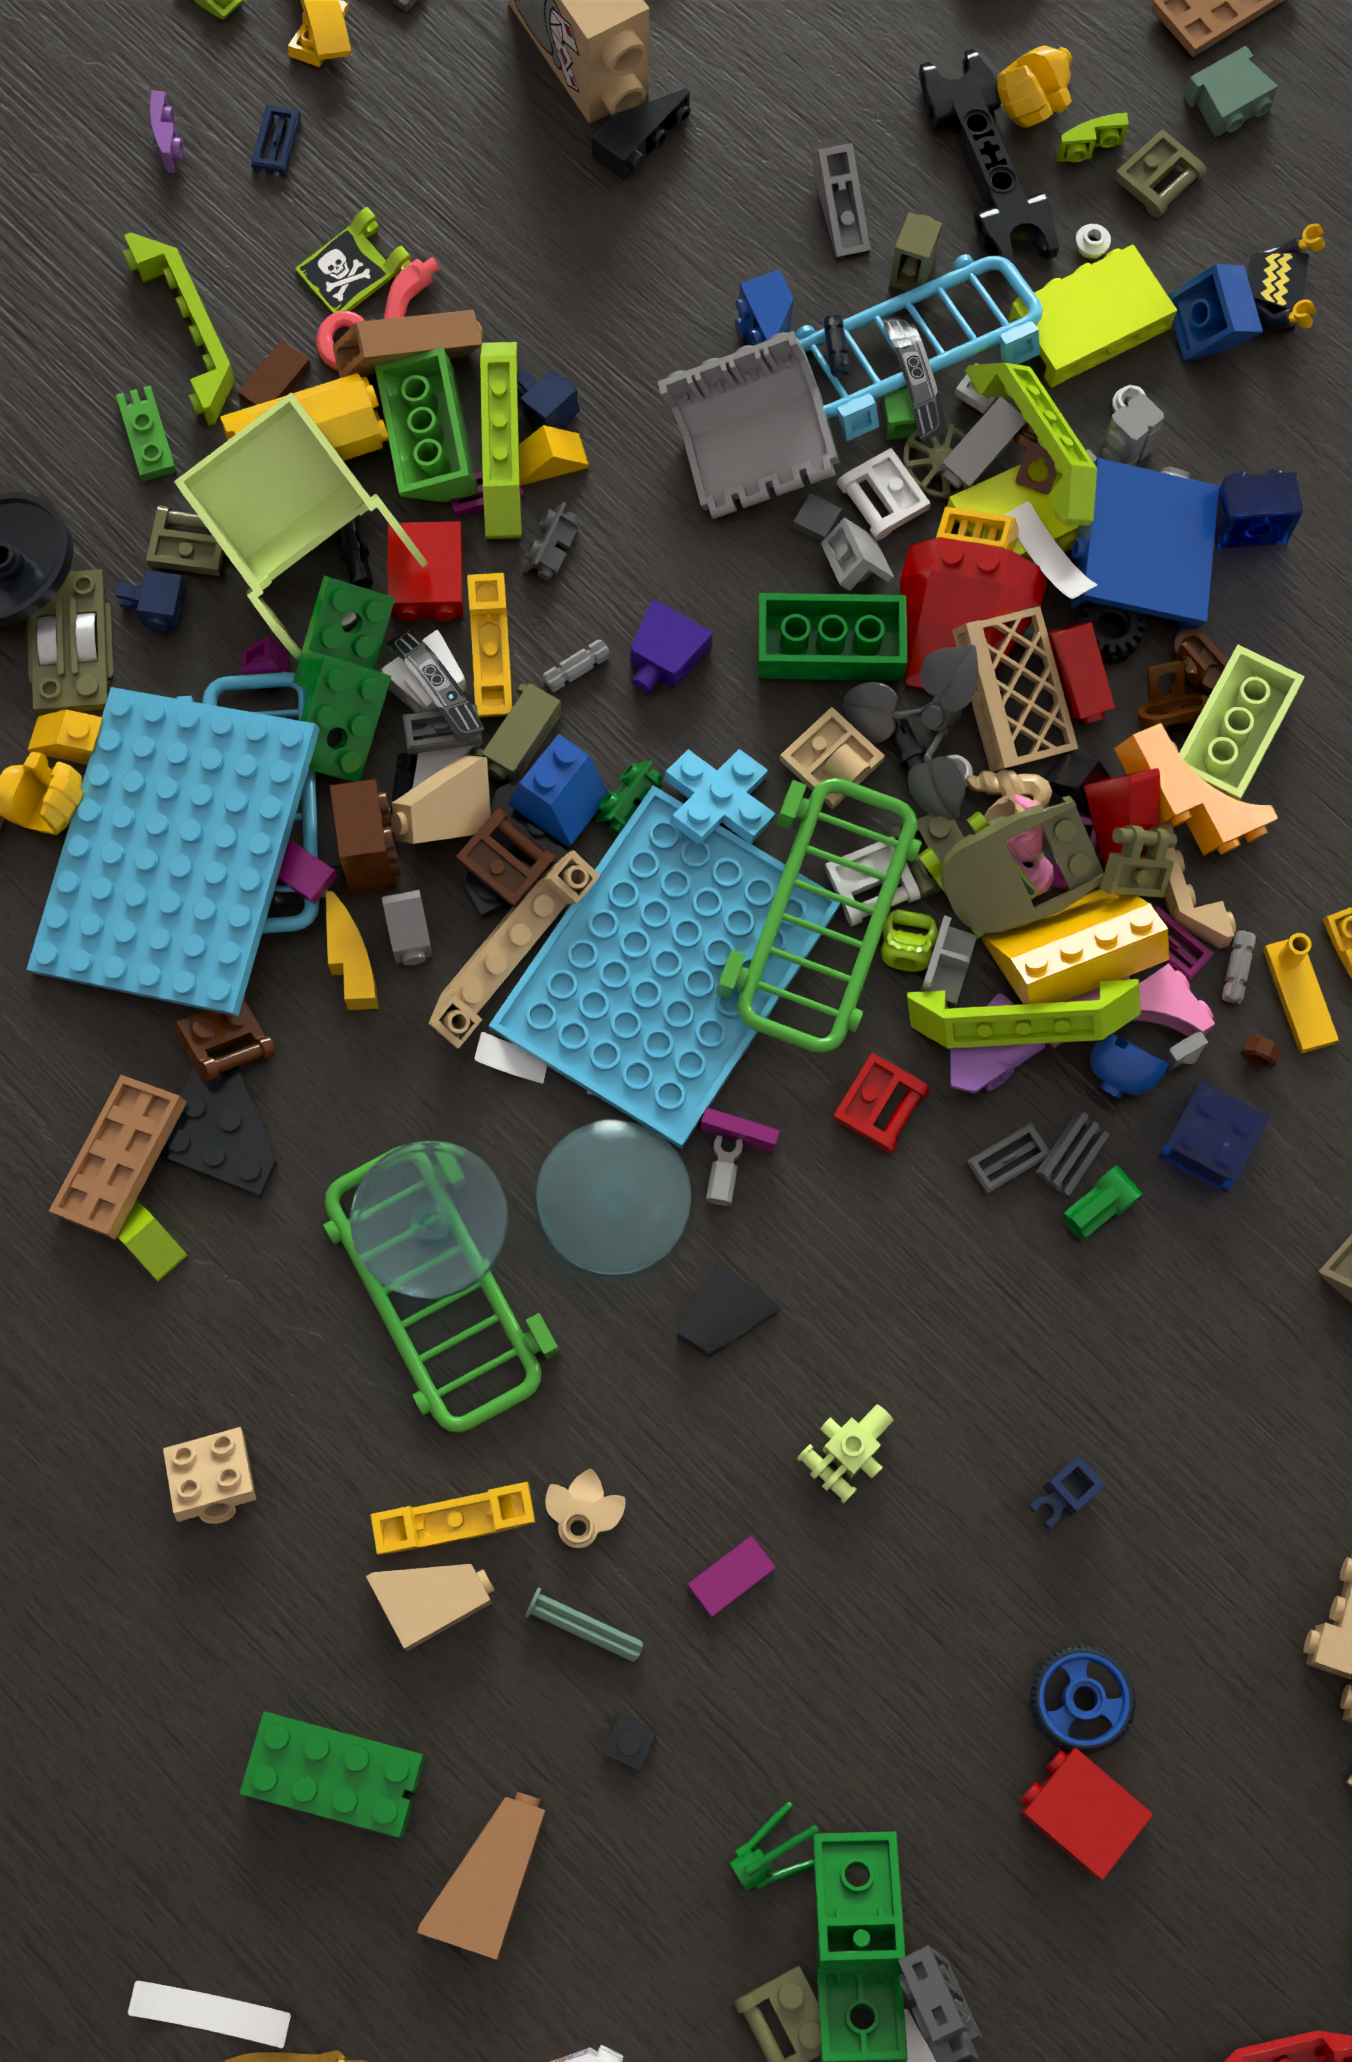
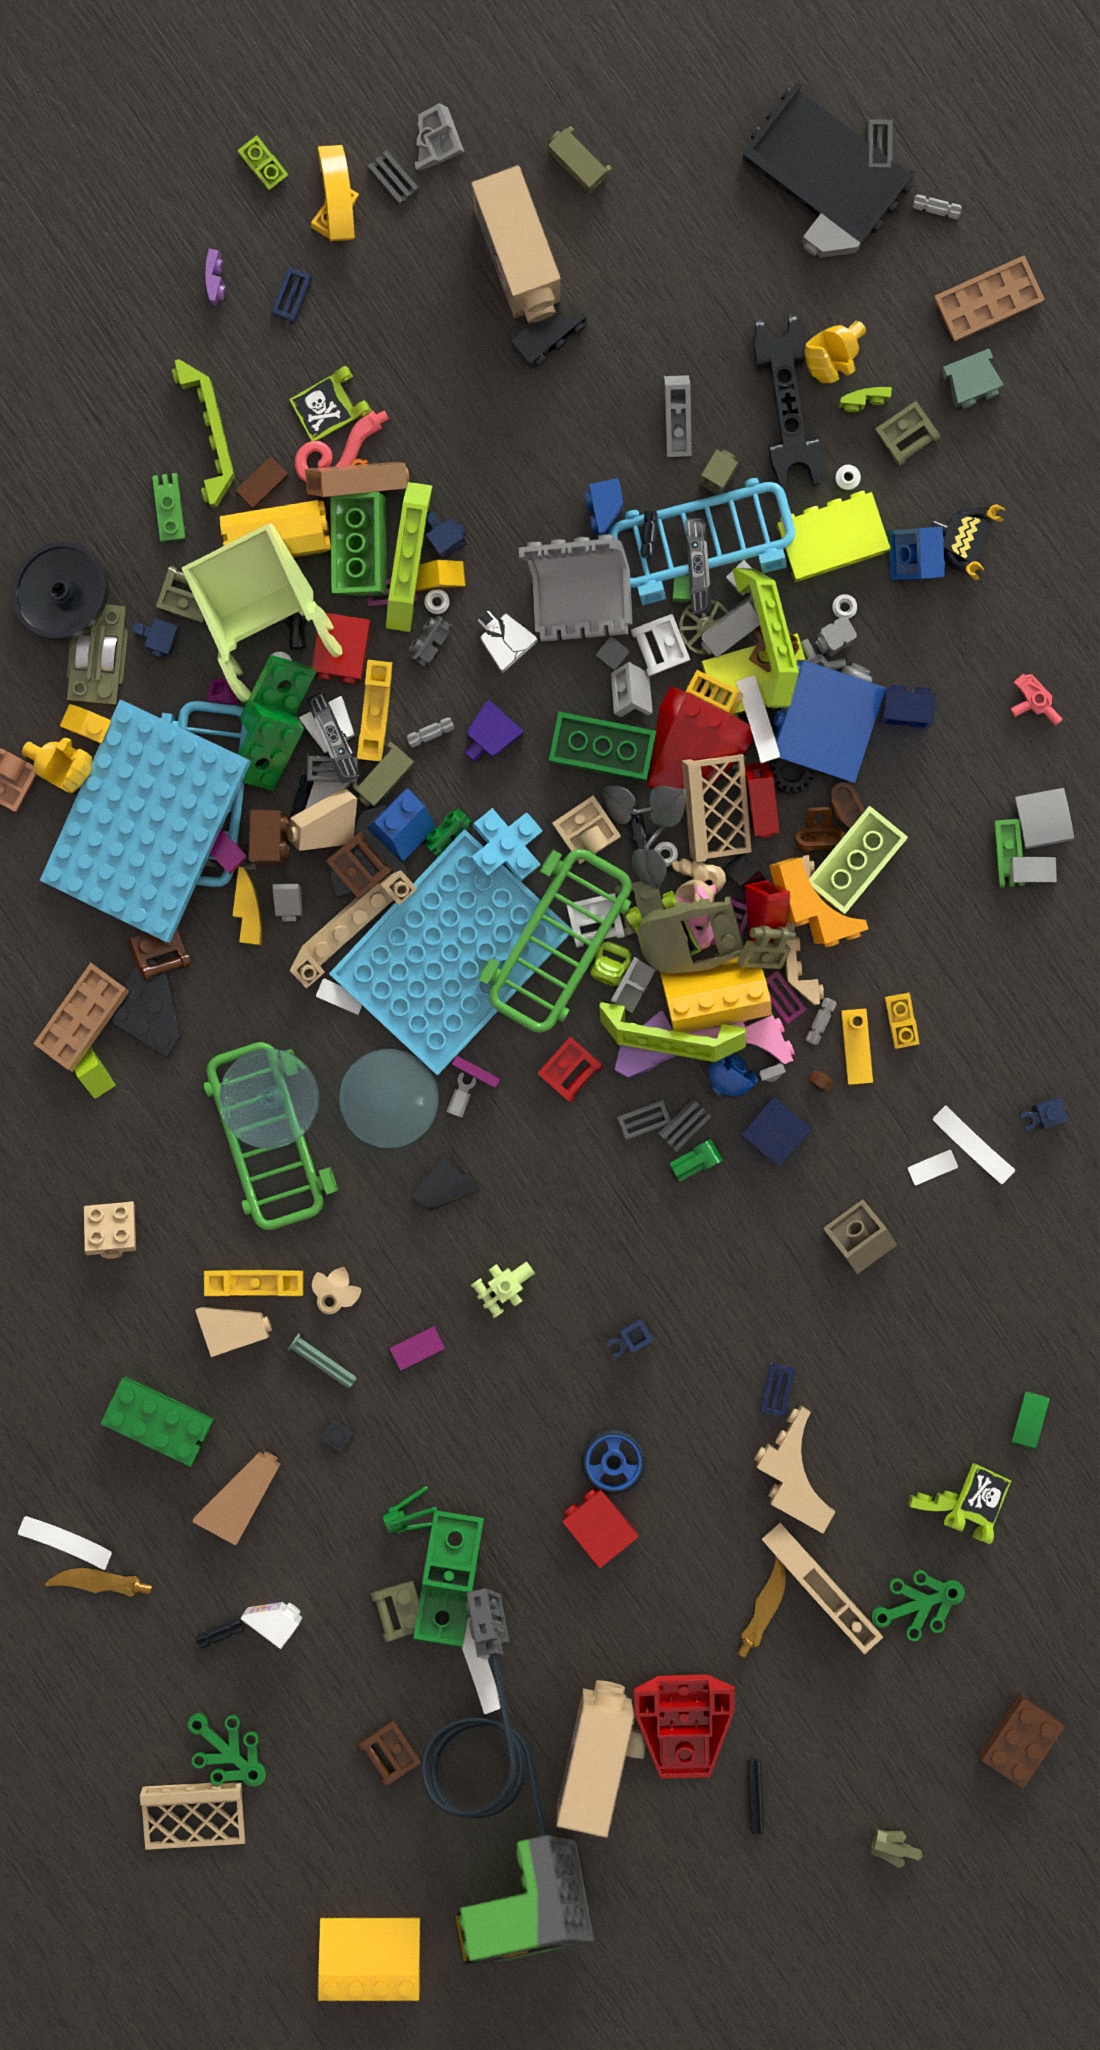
camera: 20 degrees right, 15 degrees up
(548, 482) = (437, 593): none -> white plate
(661, 522) = (505, 639): none -> white torso
(1296, 1535) = (772, 1410): none -> clear blue tile

